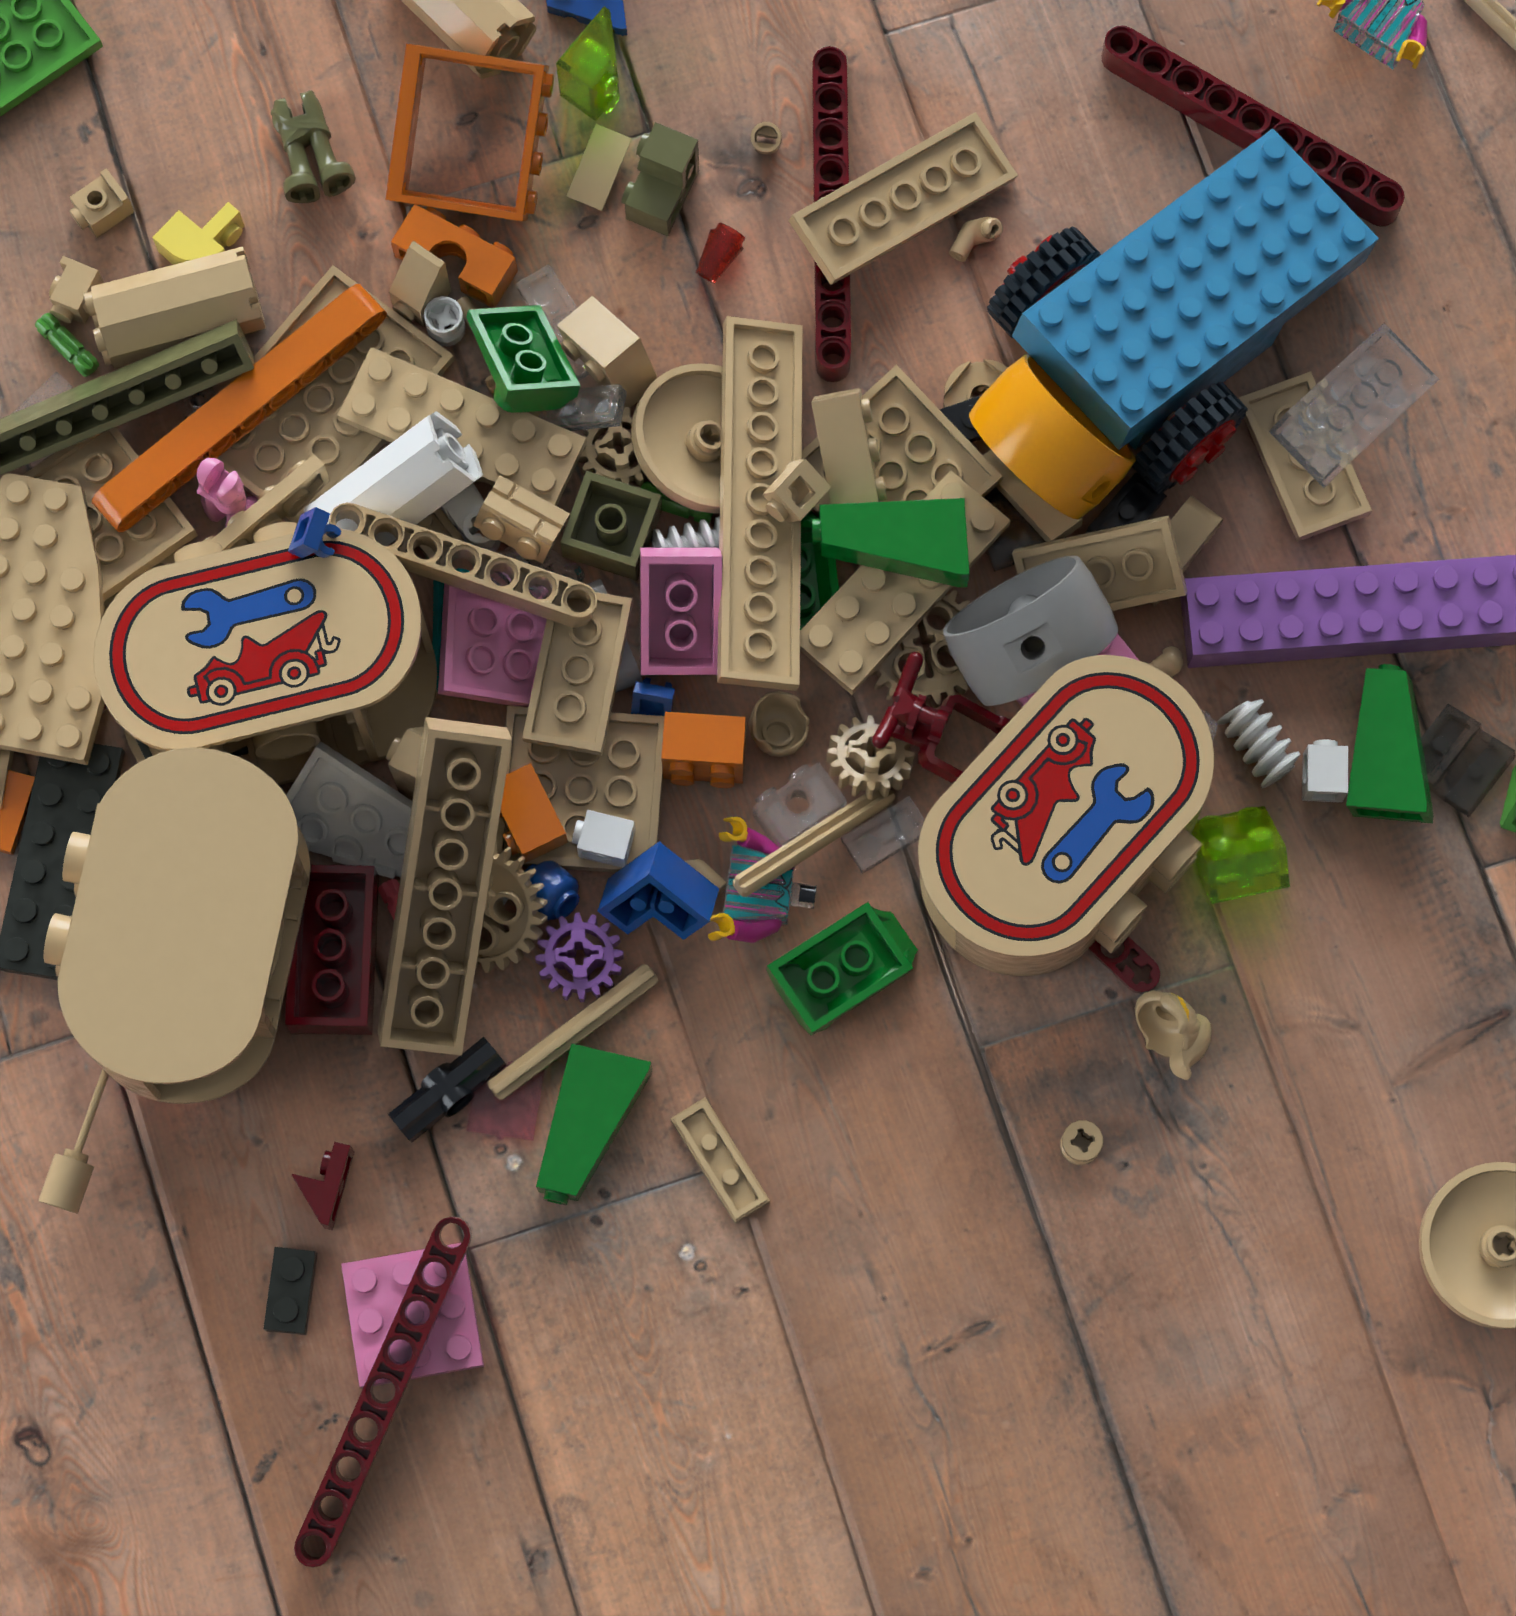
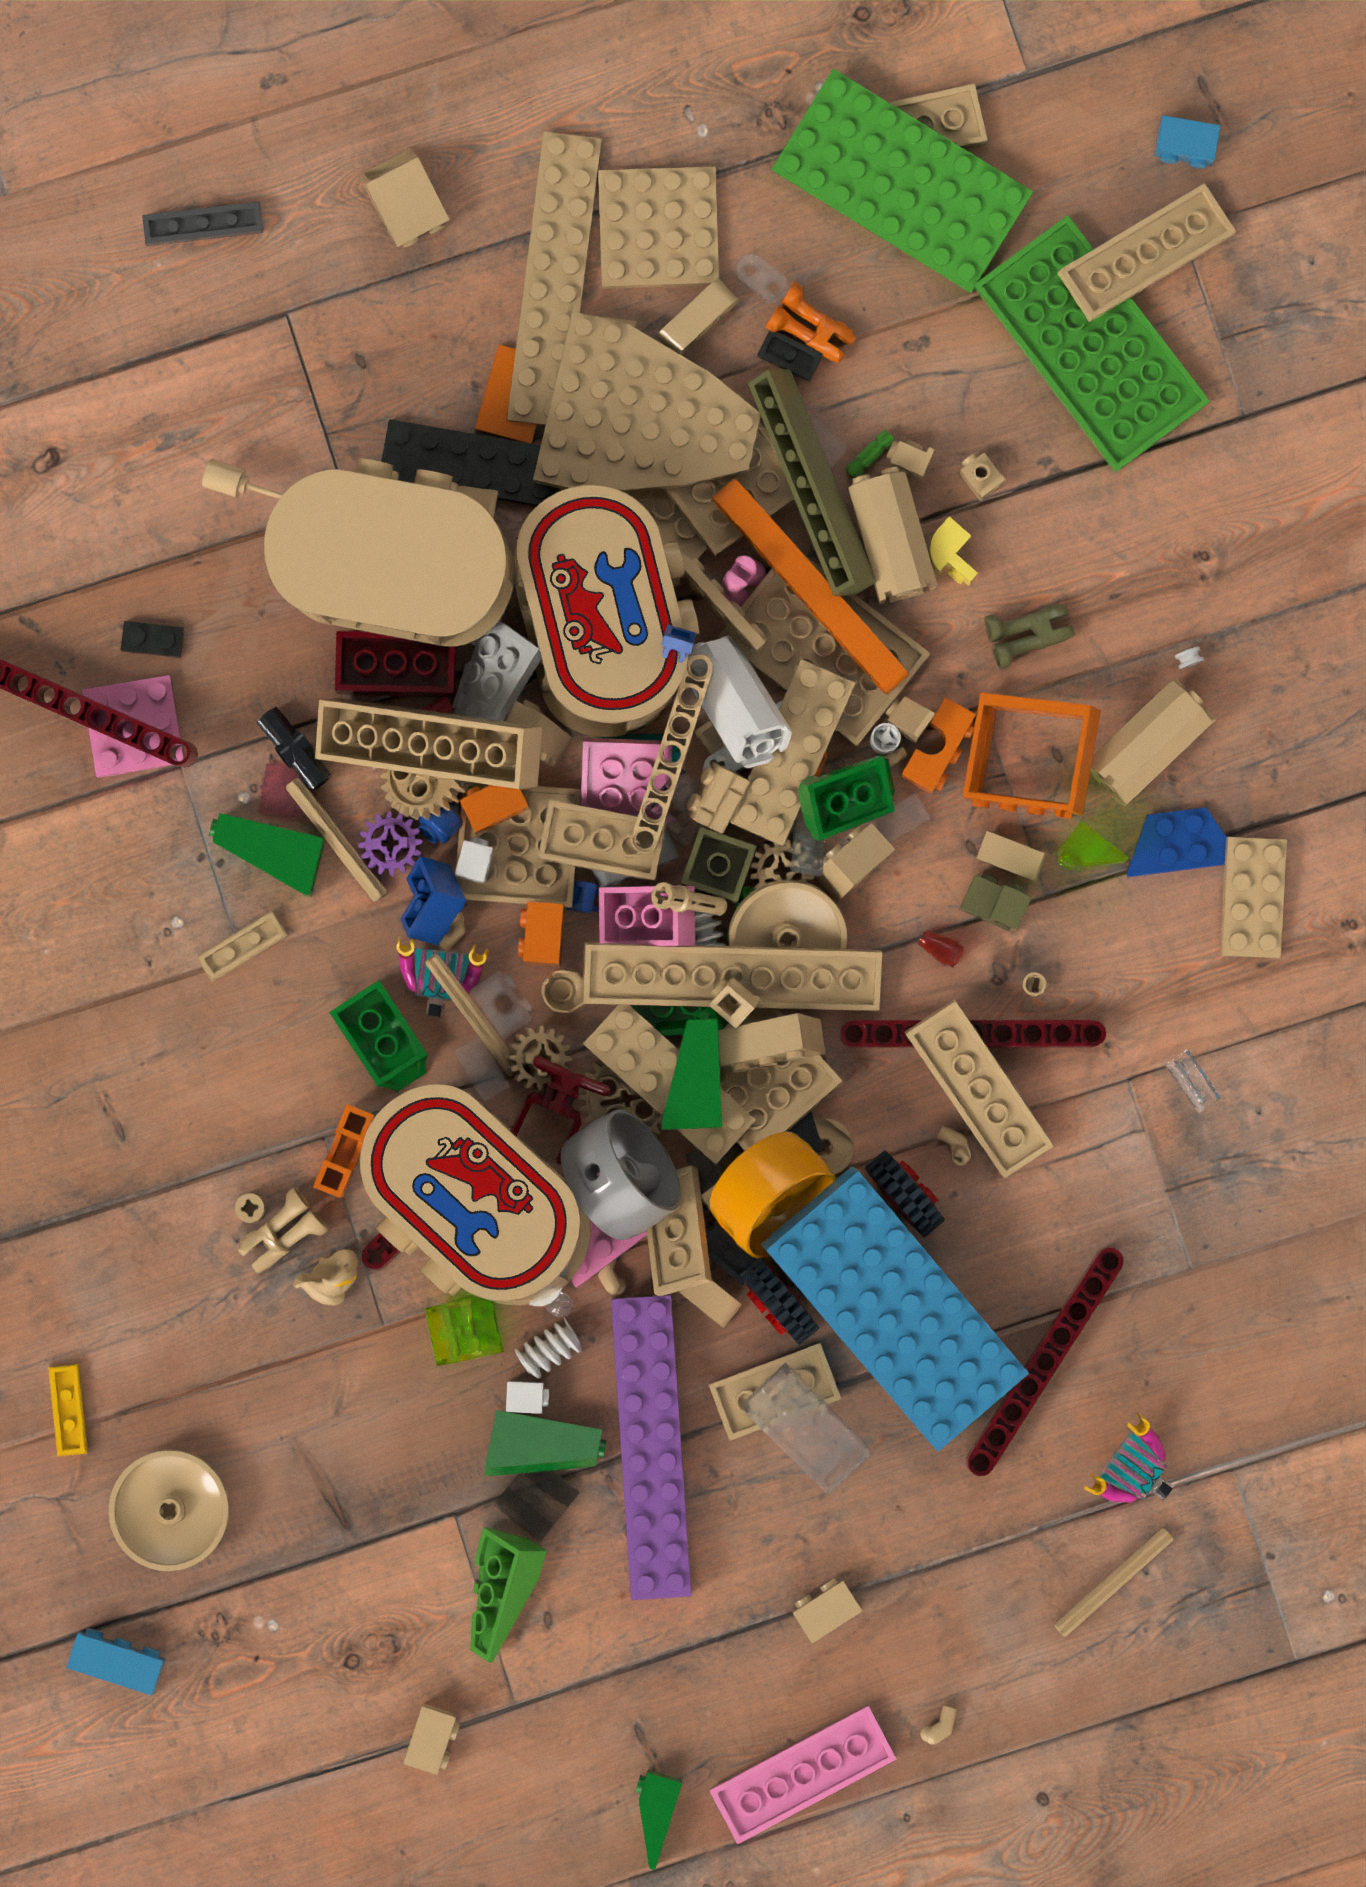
camera: 90 degrees right, 10 degrees up
(326, 1195) = (218, 662): dark red slope -> none
(651, 545) = (708, 904): none -> tan pin
(1015, 1019) = (344, 1152): none -> orange arch
(1116, 1118) = (309, 1224): none -> tan piece
(1368, 1393) = (68, 1410): none -> yellow tile

